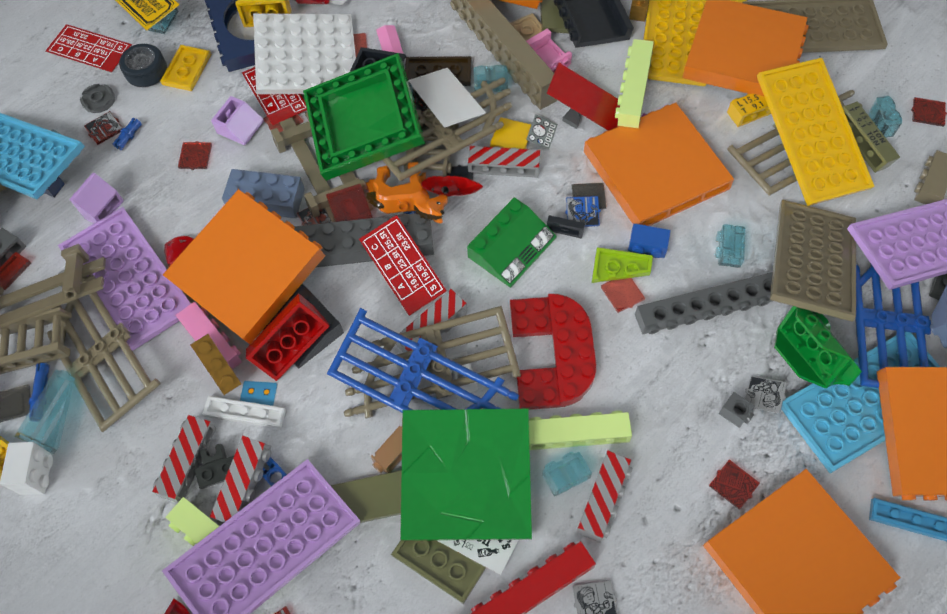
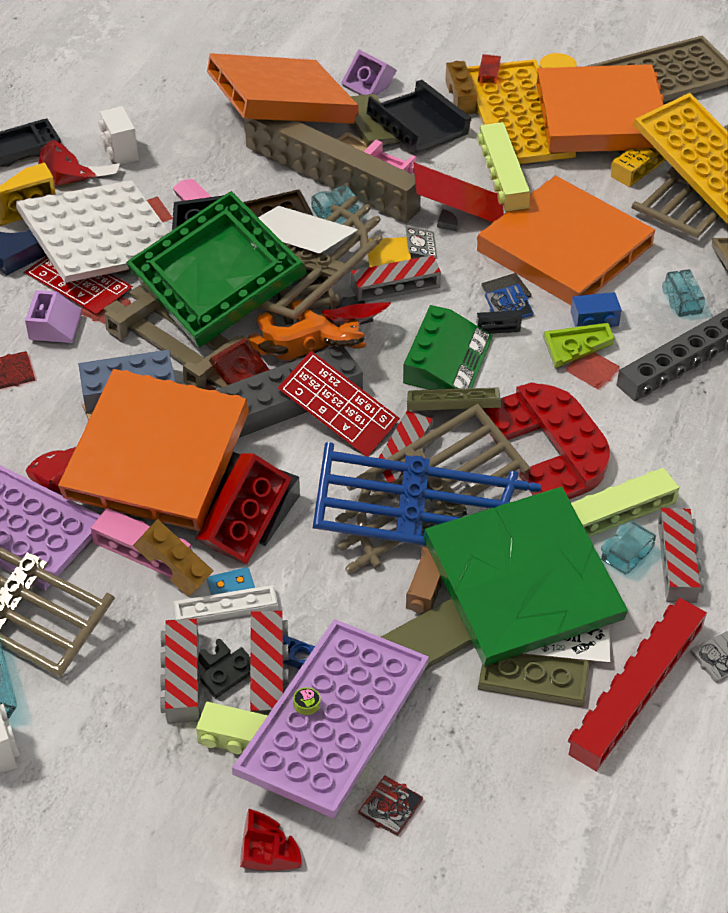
camera: 25 degrees left, 15 degrees down
(244, 531) = (306, 701): none -> tile
(493, 289) = (453, 398): none -> olive tile

